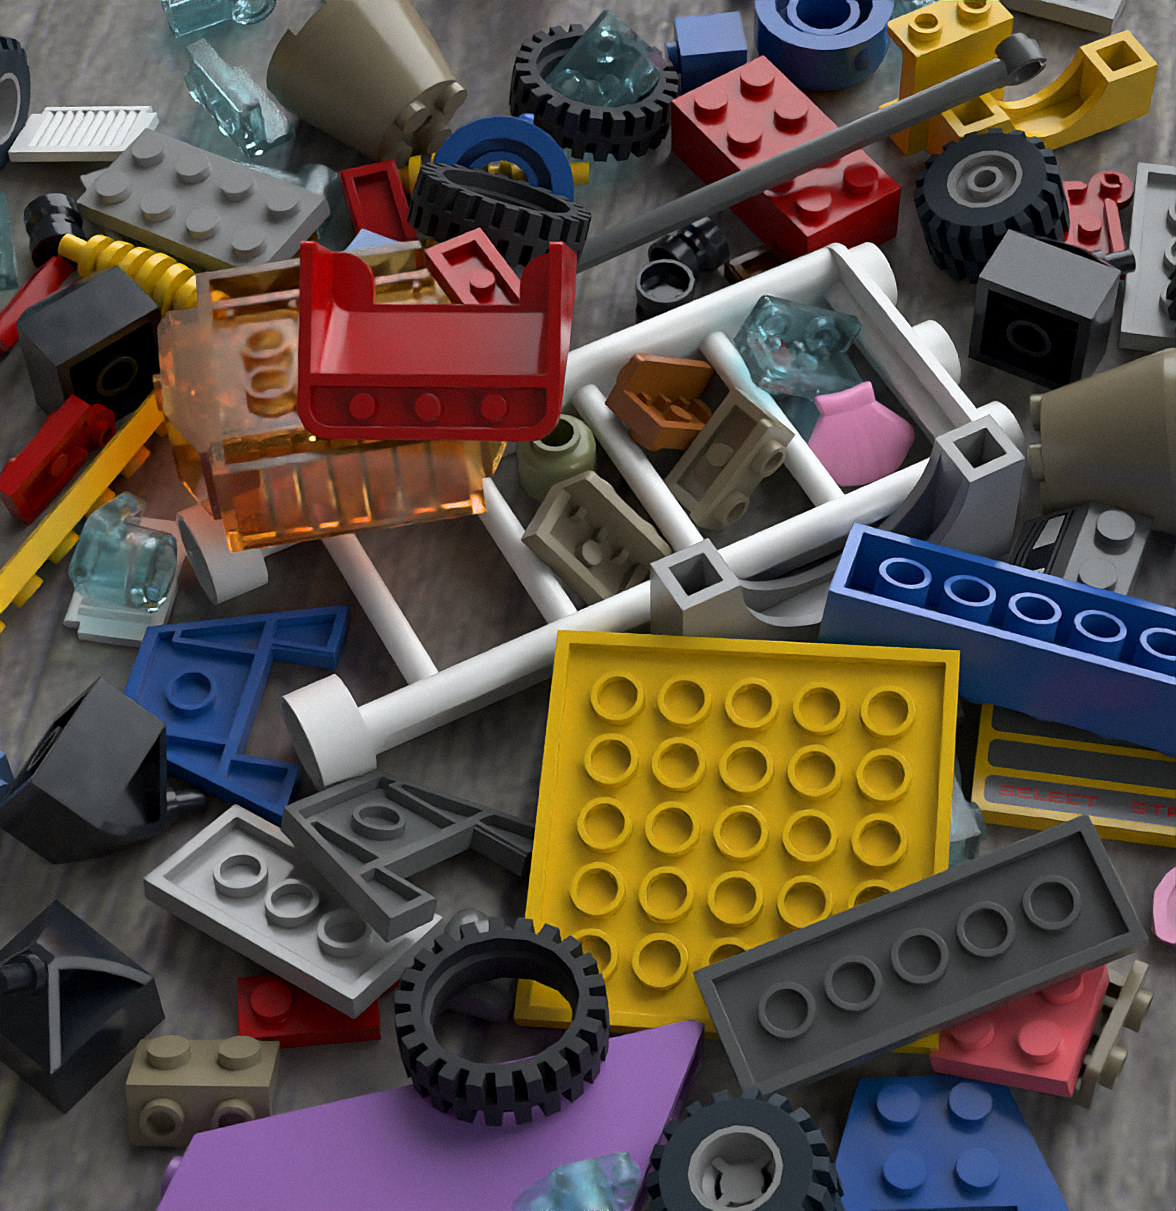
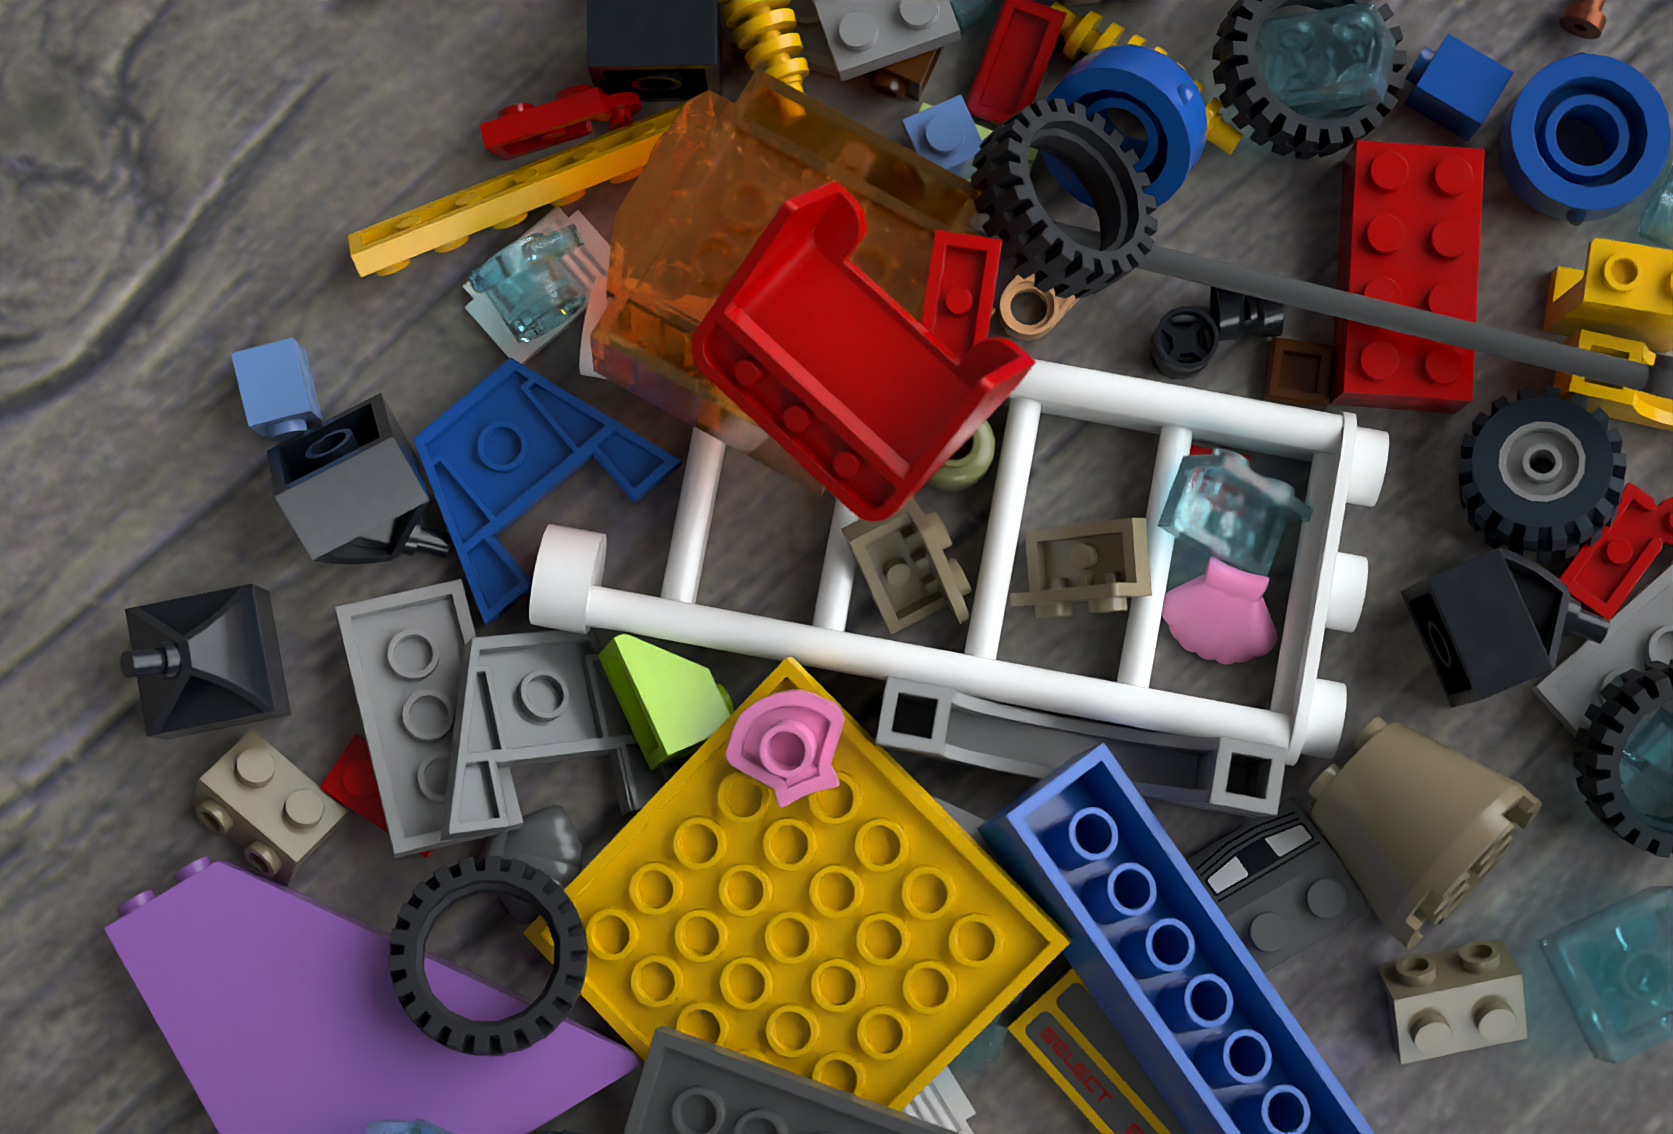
camera: 40 degrees right, 30 degrees up
(476, 763) = (665, 698): none -> lime slope
(613, 676) = (788, 743): none -> bright pink animal
(662, 400) = (1078, 474): dark orange bracket -> none

